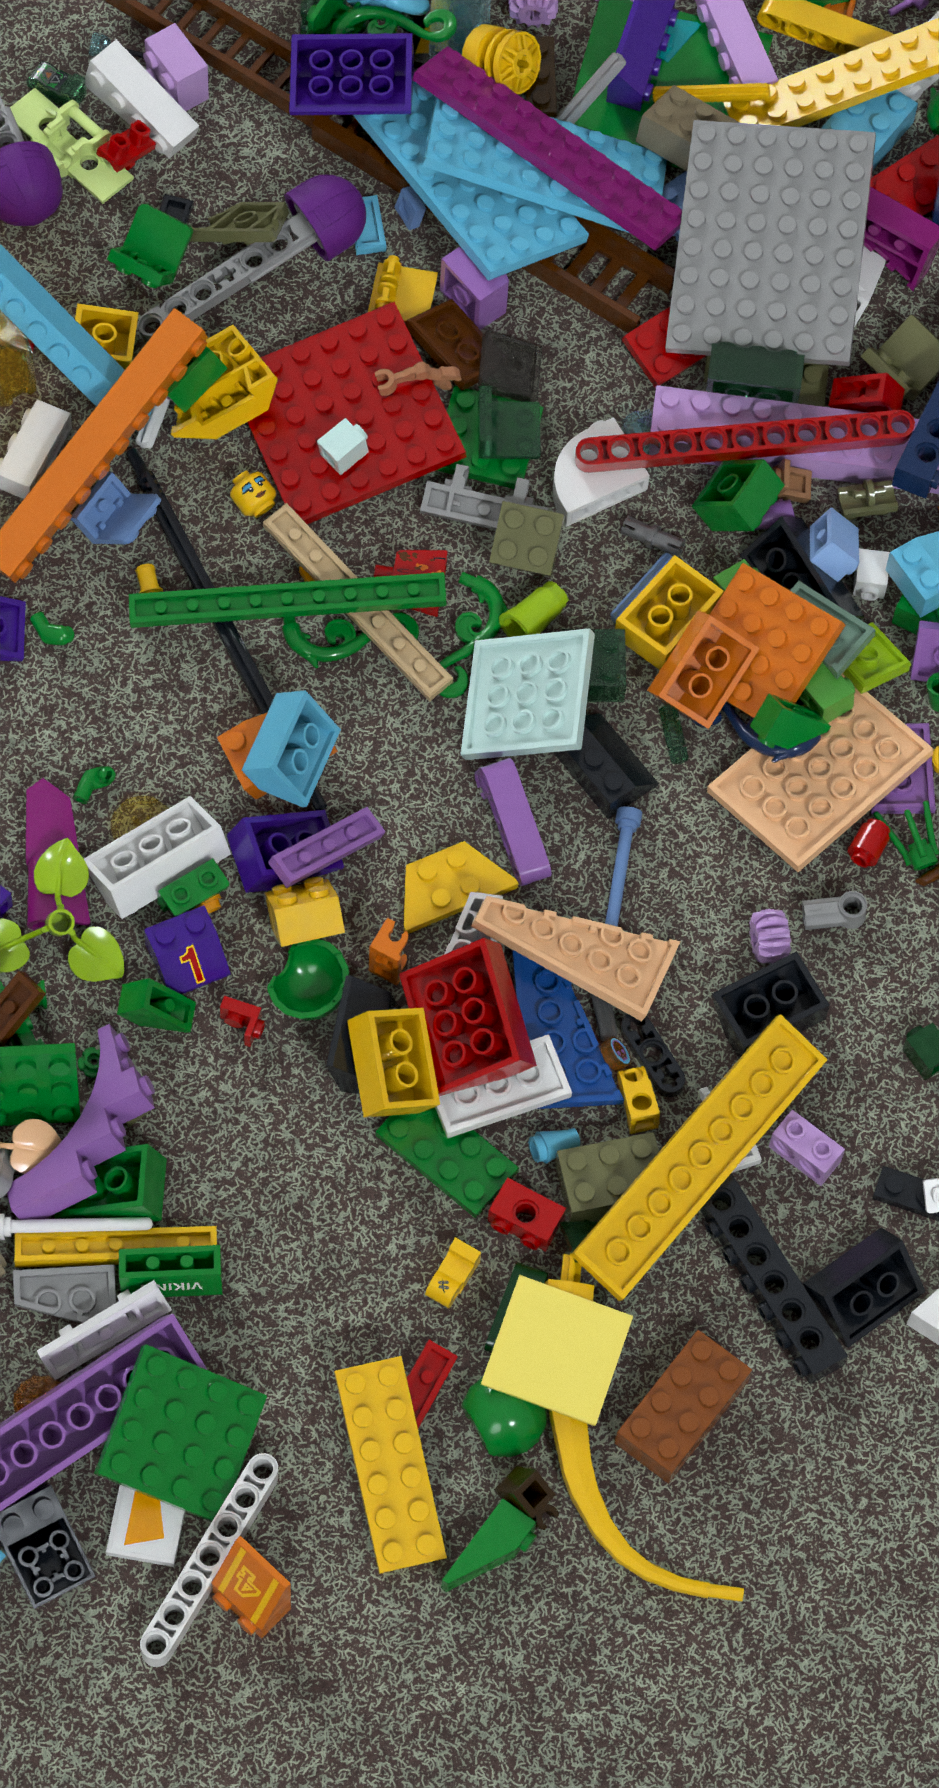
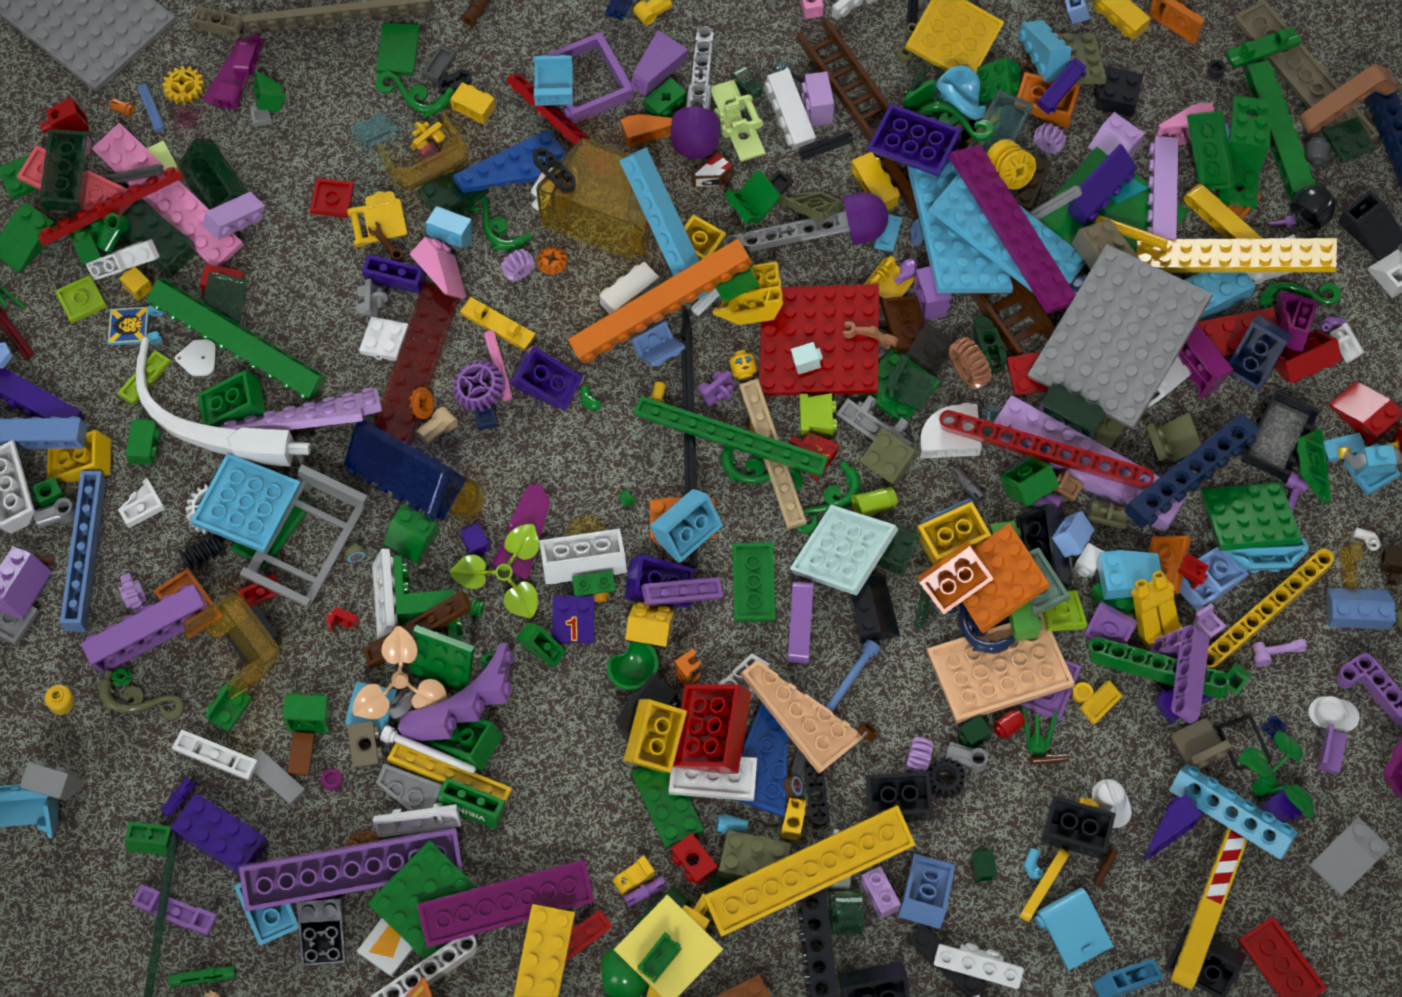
camera: 30 degrees right, 0 degrees up
(73, 232) = (713, 172): none -> slope
(93, 780) = (570, 496): green arm -> none
(127, 147) = (768, 134): red hips -> none
(177, 750) = (626, 498): none -> green plate
(216, 134) = (825, 146): none -> black axle
(235, 541) = (718, 389): none -> medium lavender hips
(243, 1014) = (586, 669): red bracket -> none
(289, 1389) = (503, 902): none -> magenta plate
(308, 154) = (874, 180): none -> yellow brick
(393, 523) = (817, 415): none -> lime hips
(418, 793) = (753, 582): none -> green plate
(422, 267) = (907, 271): none -> medium lavender animal
(443, 881) = (744, 638): yellow wing -> none
(478, 1288) = (645, 891): none -> medium lavender pin
(552, 1366) = (659, 958): none -> green hinge
(571, 312) = (985, 331): none -> dark green piece
(576, 363) = (970, 363): none -> nougat gear
(680, 934) = (867, 731): none -> reddish brown tile
(776, 1193) = (846, 913): none -> clear green brick
(786, 723) = (989, 630): green slope -> none
(828, 874) = (974, 733): none -> dark green brick
(832, 942) = (954, 769): none -> black tyre
(867, 393) = (1138, 451): red brick -> none
(869, 1118) = (927, 891): none -> medium blue slope

